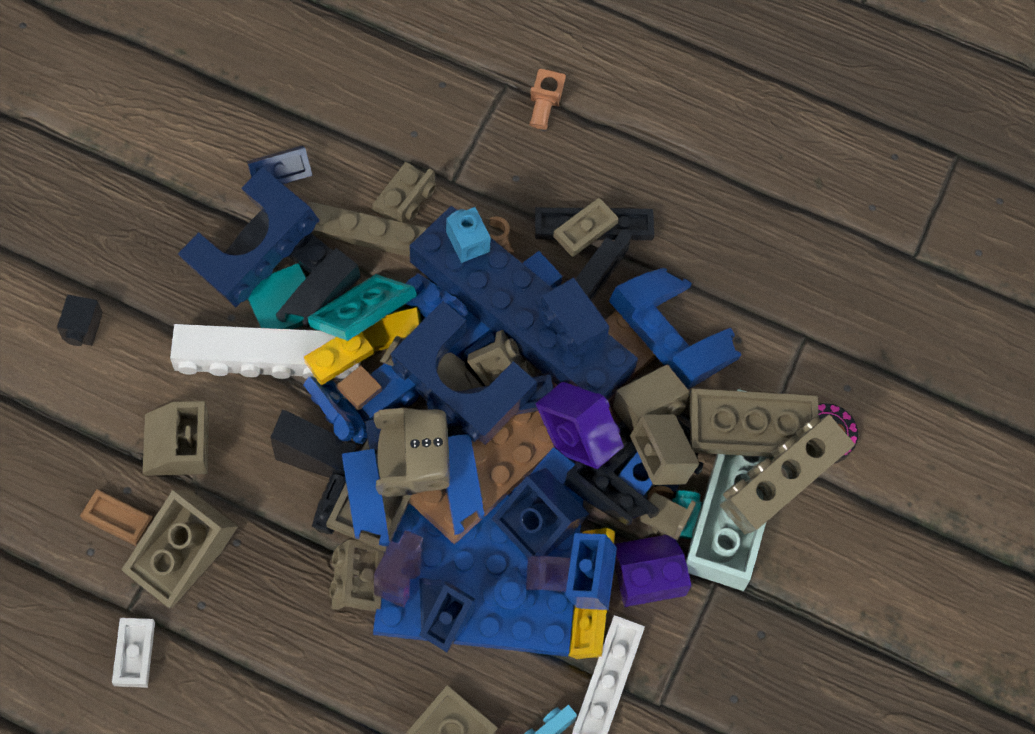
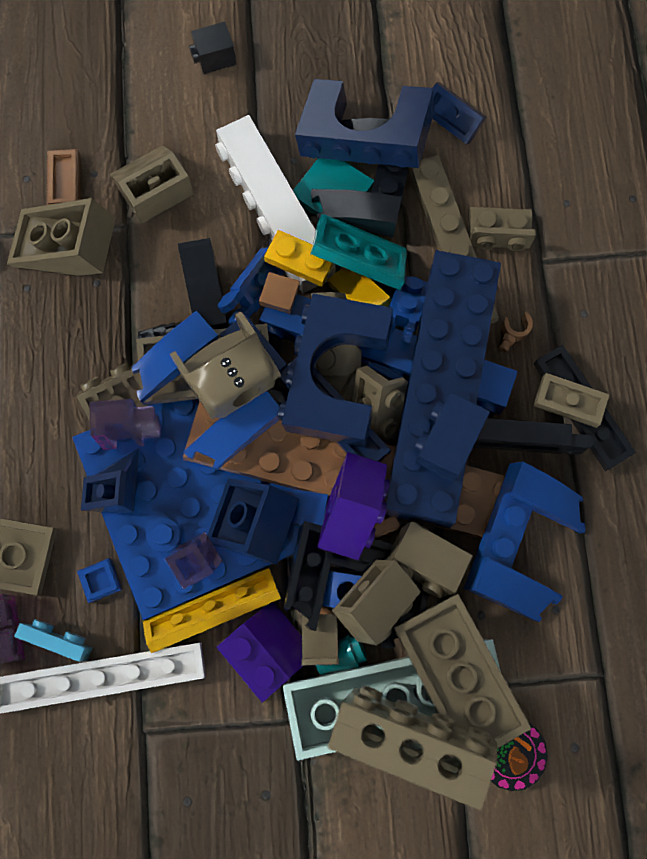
camera: 65 degrees right, 10 degrees up
(468, 234) = (474, 289): dark azure brick -> none
(513, 674) = (99, 580): none -> blue tile
(591, 571) = (213, 598): blue brick -> none

